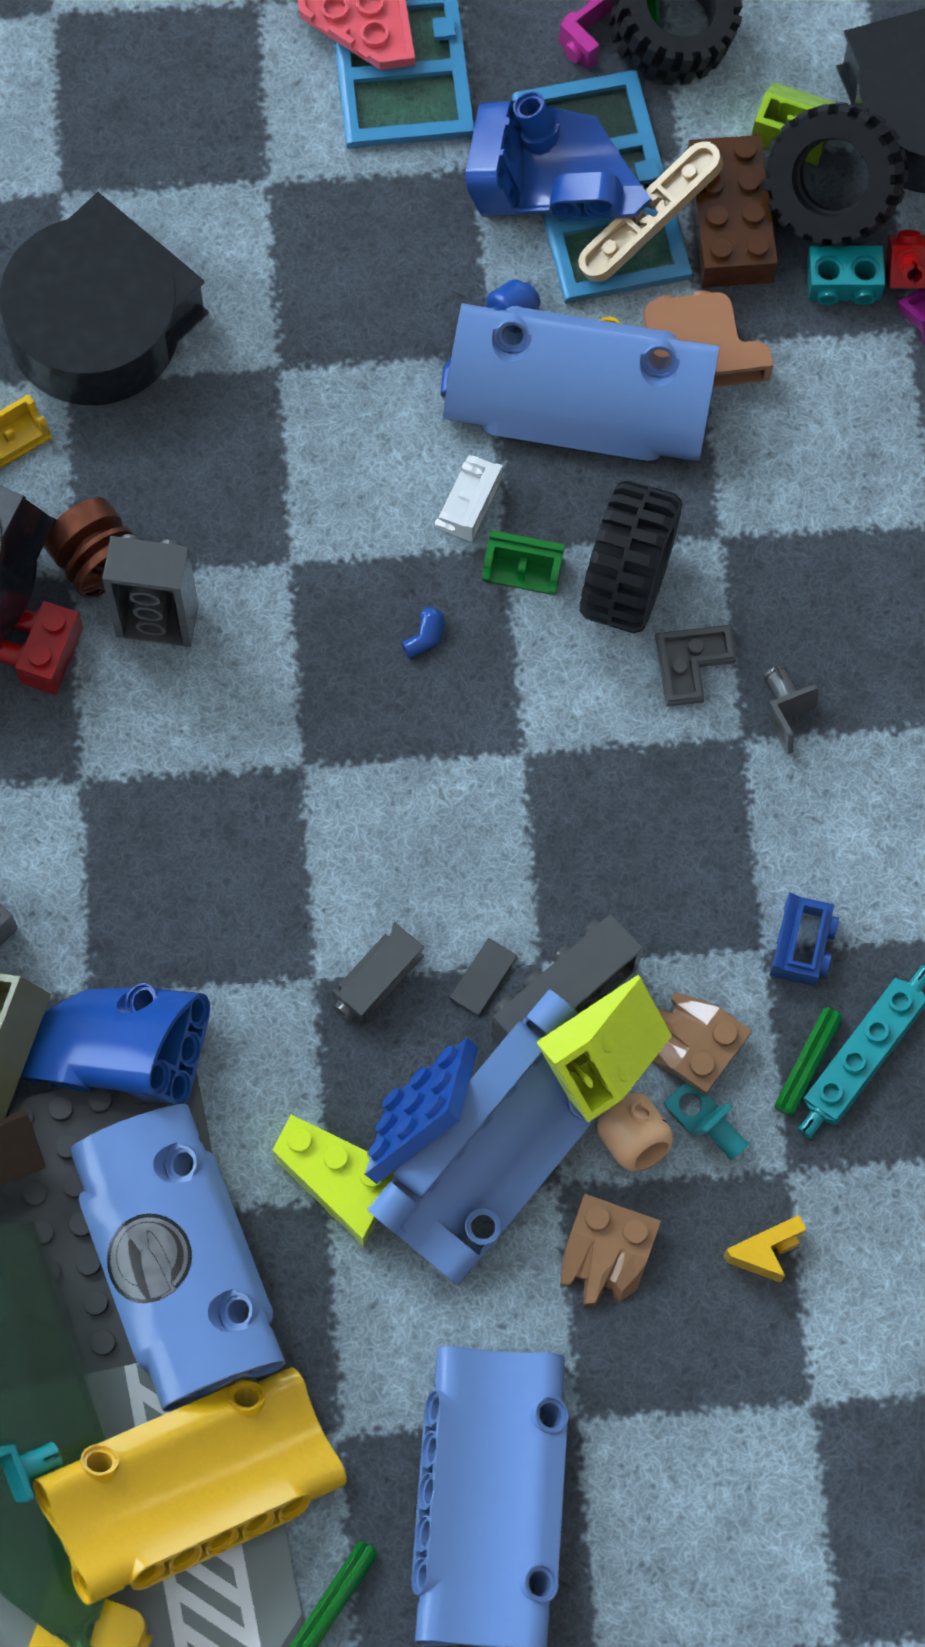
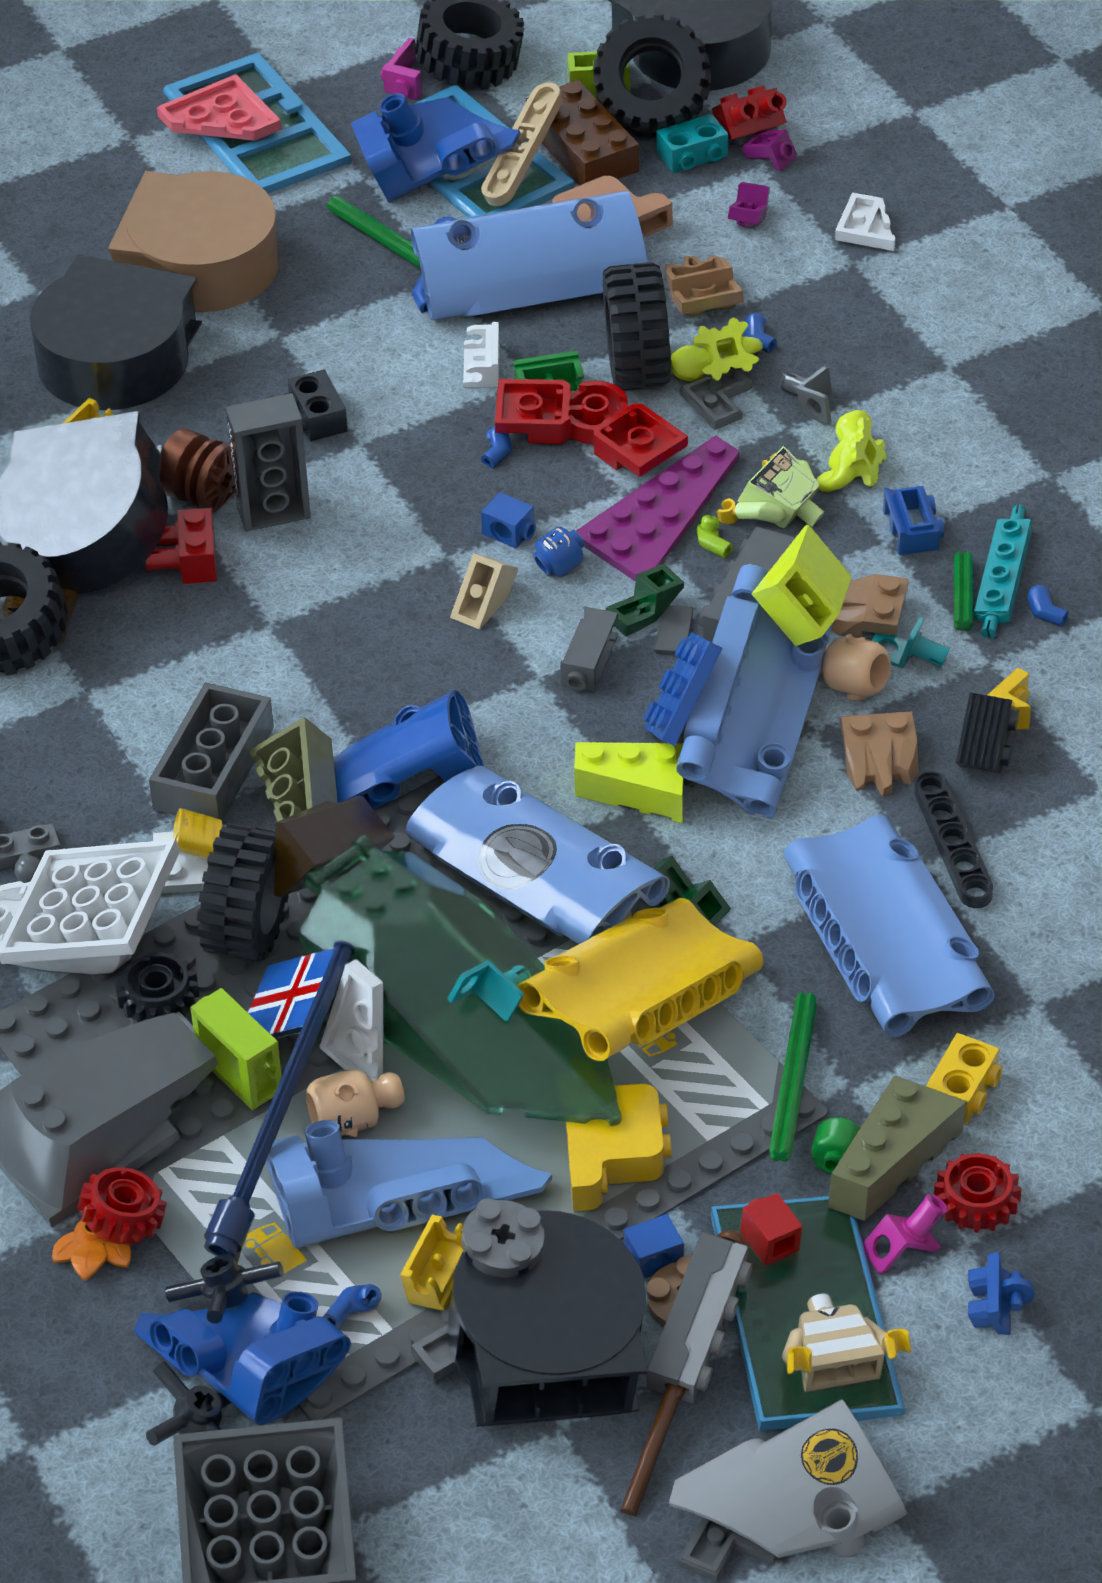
camera: 20 degrees left, 25 degrees down
(244, 205) = (204, 229): none -> medium nougat brick
(263, 496) = (318, 405): none -> black brick
(311, 839) = (483, 590): none -> tan slope
(315, 1354) = (702, 895): none -> dark green slope
(382, 752) = (508, 520): none -> blue brick
(413, 821) = (559, 551): none -> blue head
(445, 248) = (373, 228): none -> green axle
(473, 931) = (652, 596): none -> dark green slope
(501, 618) = (592, 415): none -> red plate
(533, 810) = (654, 518): none -> magenta wing
(581, 865) = (709, 537): none -> lime arm
(616, 1423) = (953, 826): none -> black beam
(680, 841) = (776, 493): none -> yellowish green torso
(717, 615) = (719, 352): none -> neon yellow animal
(719, 1292) = (987, 732): none -> black brick
(752, 493) = (703, 285): none -> medium nougat plate
(775, 585) = (756, 330): none -> blue arm
(788, 818) = (855, 454): none -> neon yellow animal
(860, 396) = (750, 204): none -> magenta bracket
(879, 1122) = (1042, 606): none -> blue arm

